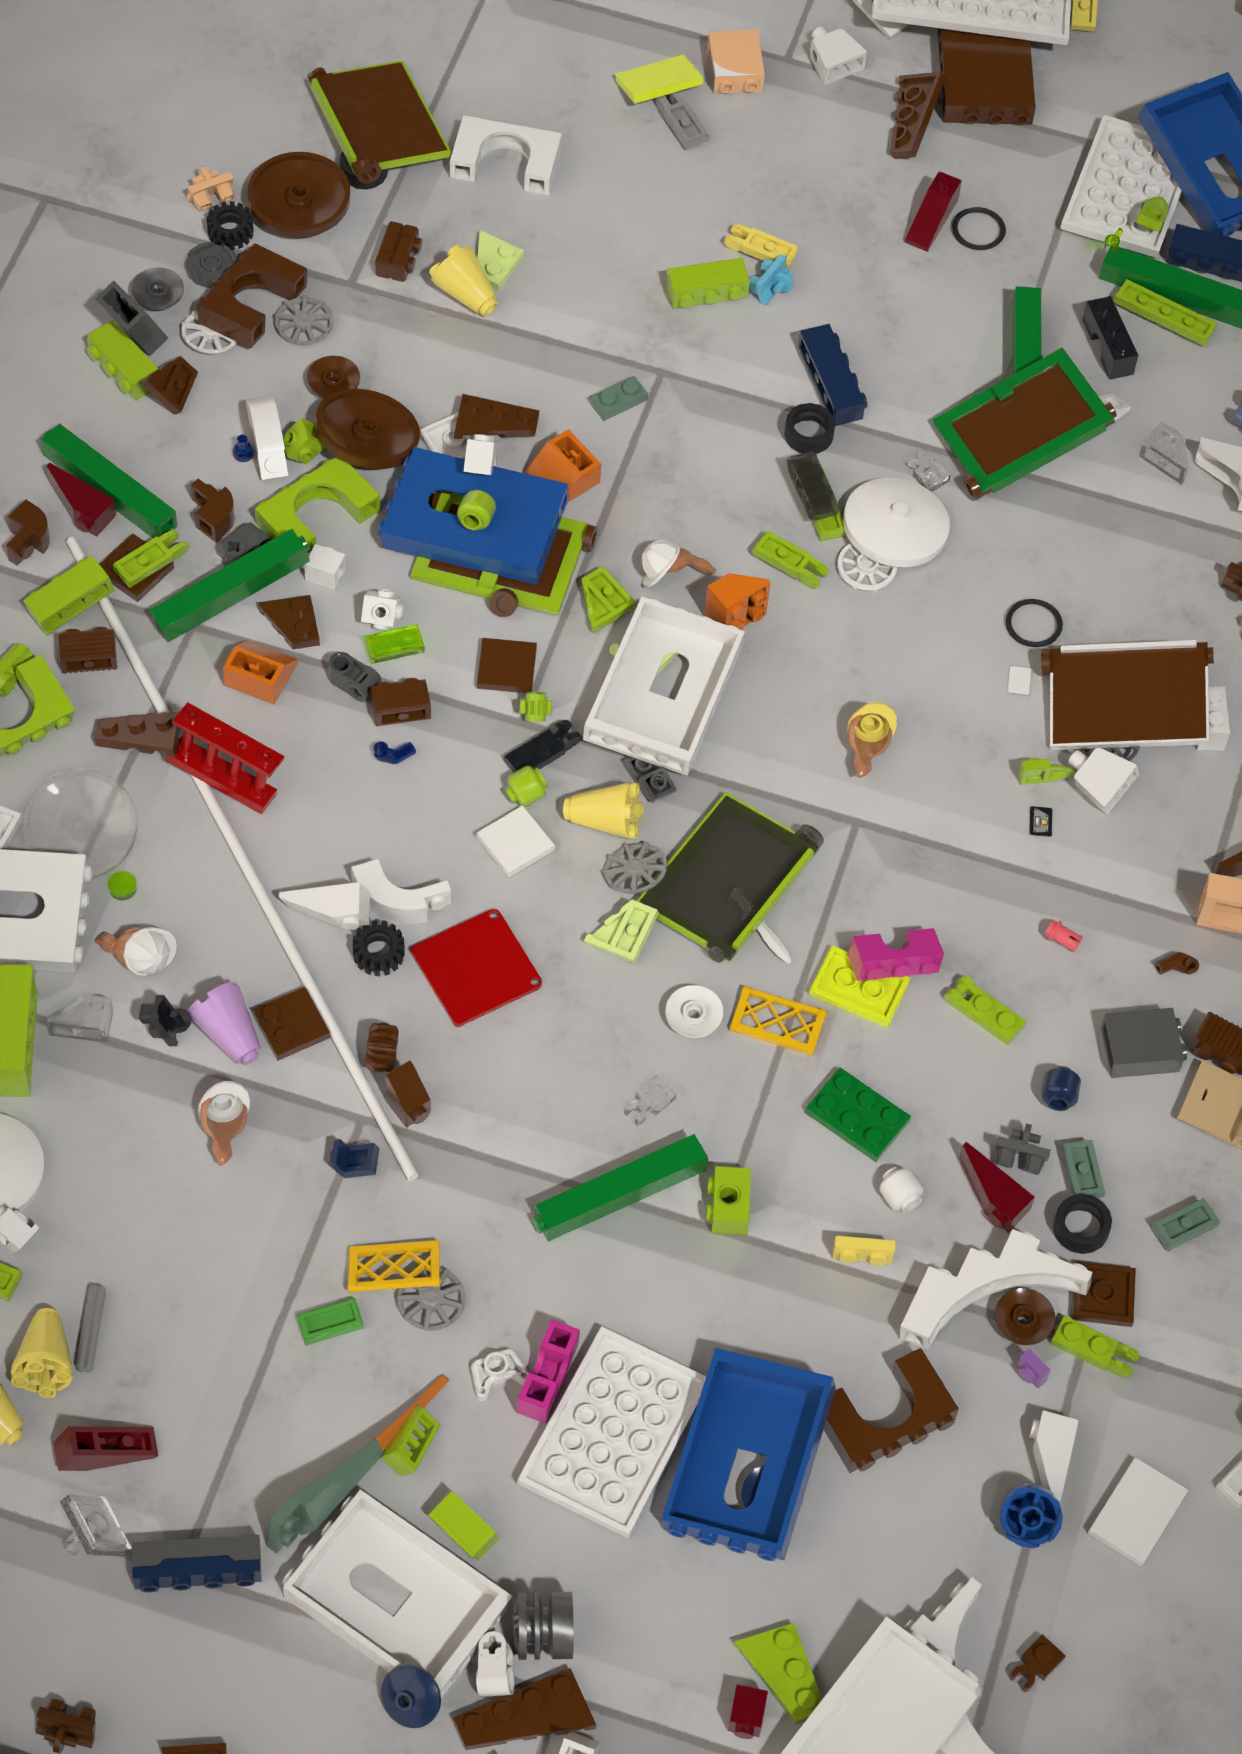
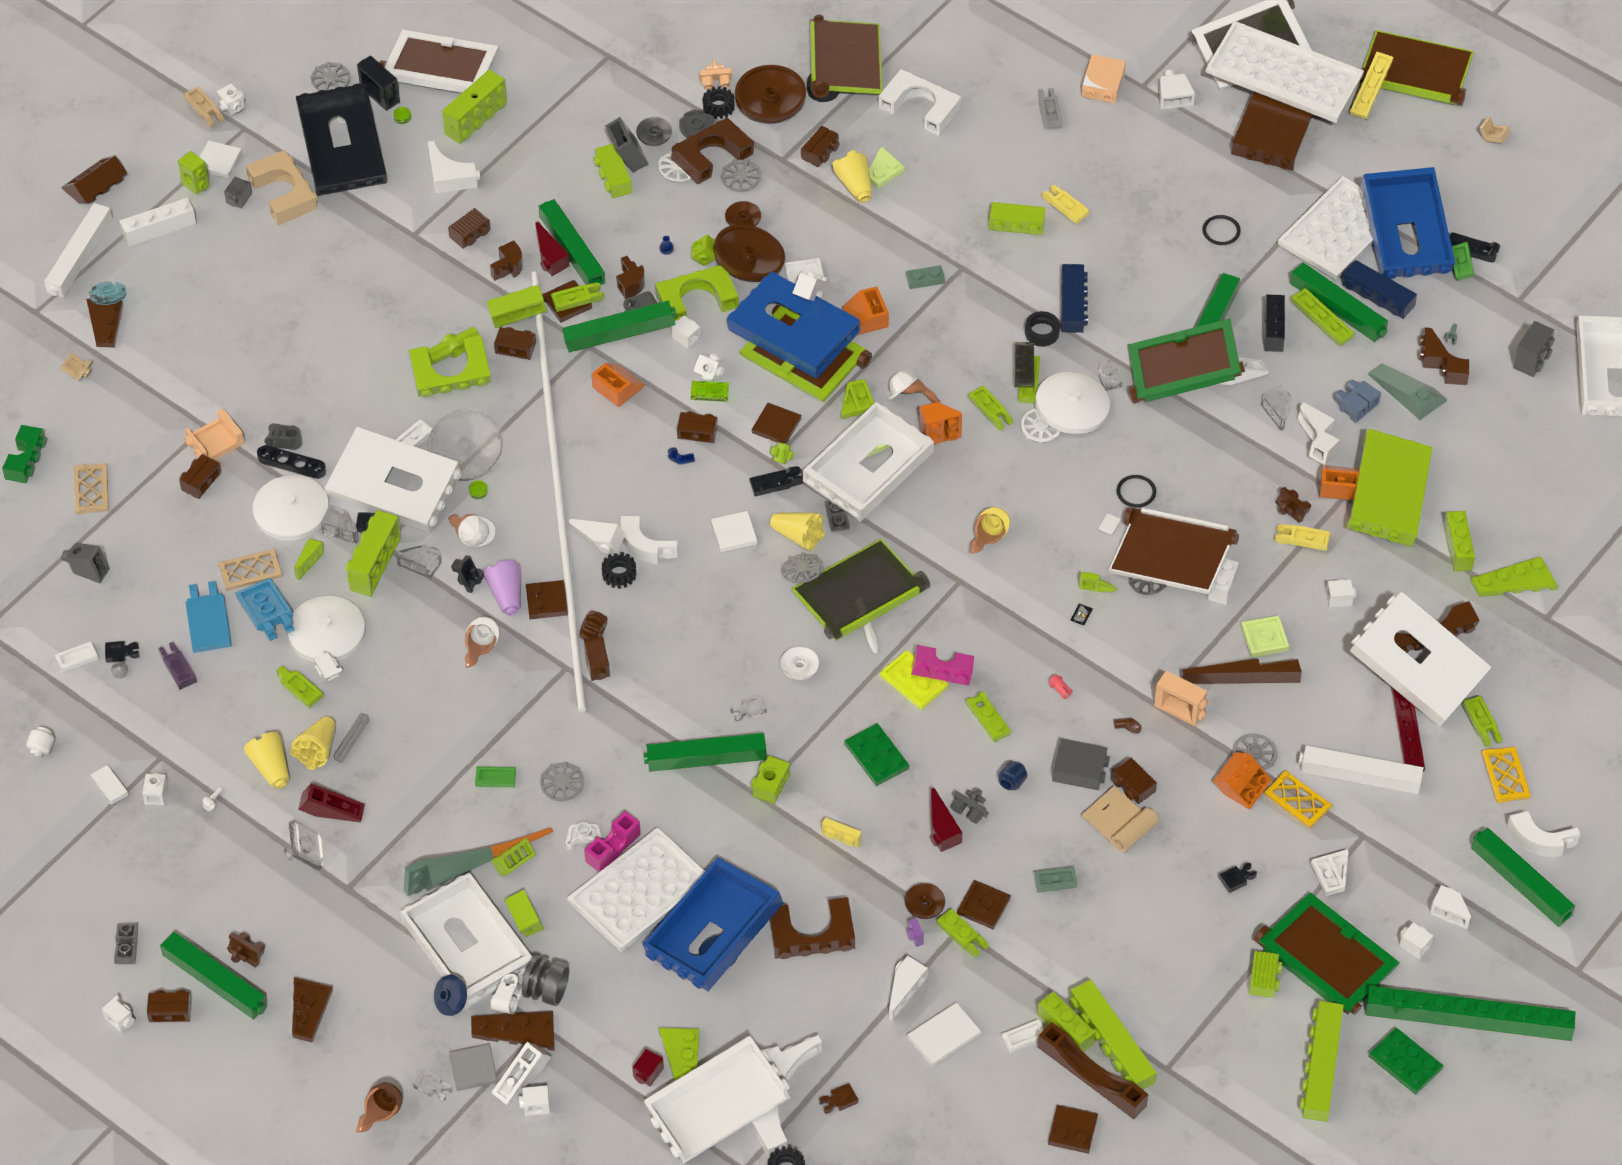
camera: 25 degrees right, 5 degrees down
(145, 732) = (526, 400): reddish brown wing -> none
(171, 383) = (637, 192): reddish brown wing -> none
(196, 1563) = (357, 884): piece -> none
(217, 772) = (561, 434): red fence -> none
(268, 436) = (683, 234): white arch -> none
(293, 619) = (653, 359): reddish brown wing -> none
(354, 1159) = (548, 688): dark blue bracket -> none
(356, 677) = (673, 402): dark grey piece -> none
(379, 1251) = (541, 746): yellow window -> none
(476, 510) = (791, 319): lime head -> none
(476, 967) = (676, 599): red piece -> none
(494, 417) = (836, 267): reddish brown wing -> none
(504, 602) = (790, 384): reddish brown tile -> none
(526, 786) = (754, 499): lime head -> none
(625, 931) = (778, 603): yellowish green wing -> none
(659, 79) = (1046, 77): neon yellow tile -> none
(774, 279) = (1062, 227): medium azure hips -> none
(784, 1041) = (833, 672): yellow window -> none
(901, 1189) = (882, 805): white head -> none
(915, 108) = (1214, 138): reddish brown wing -> none
(934, 211) = (1194, 210): dark red slope -> none
(982, 1274) = (907, 868): white arch -> none
(1030, 1515) = (870, 1011): blue cylinder -> none
(1083, 1168) = (1004, 828): sand green plate -> none
(1088, 1204) = (985, 871): black tyre -> none
(1103, 777) = (1132, 597): white torso -> none
(1113, 240) = (1303, 259): clear neon green hand -> none
(1153, 213) = (1342, 249): lime plate -> none

